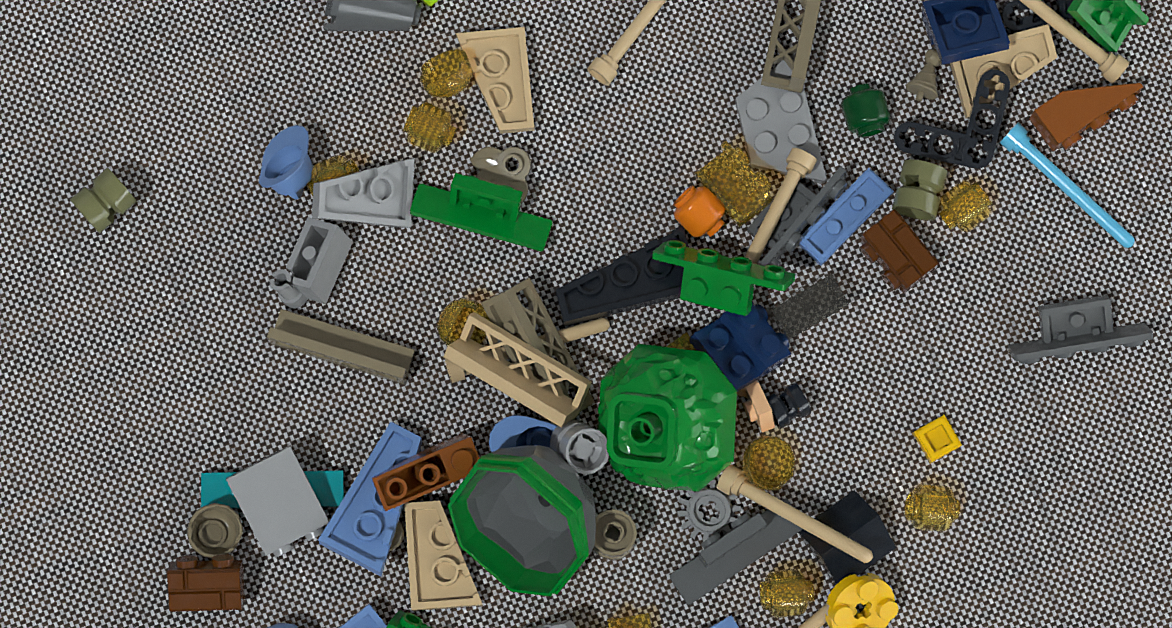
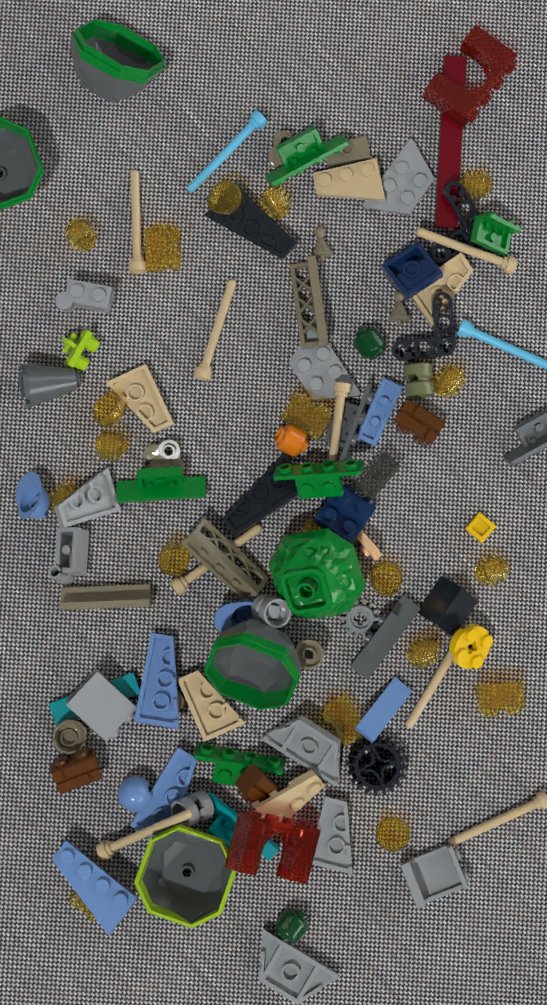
camera: 20 degrees left, 5 degrees up
(426, 471) = (184, 656): dark orange slope -> none
(511, 379) = (221, 584): tan fence -> none
(734, 482) = (371, 597): tan piece -> none
(788, 405) = (388, 535): black wheel -> none
(1074, 111) = (494, 300): dark orange slope -> none

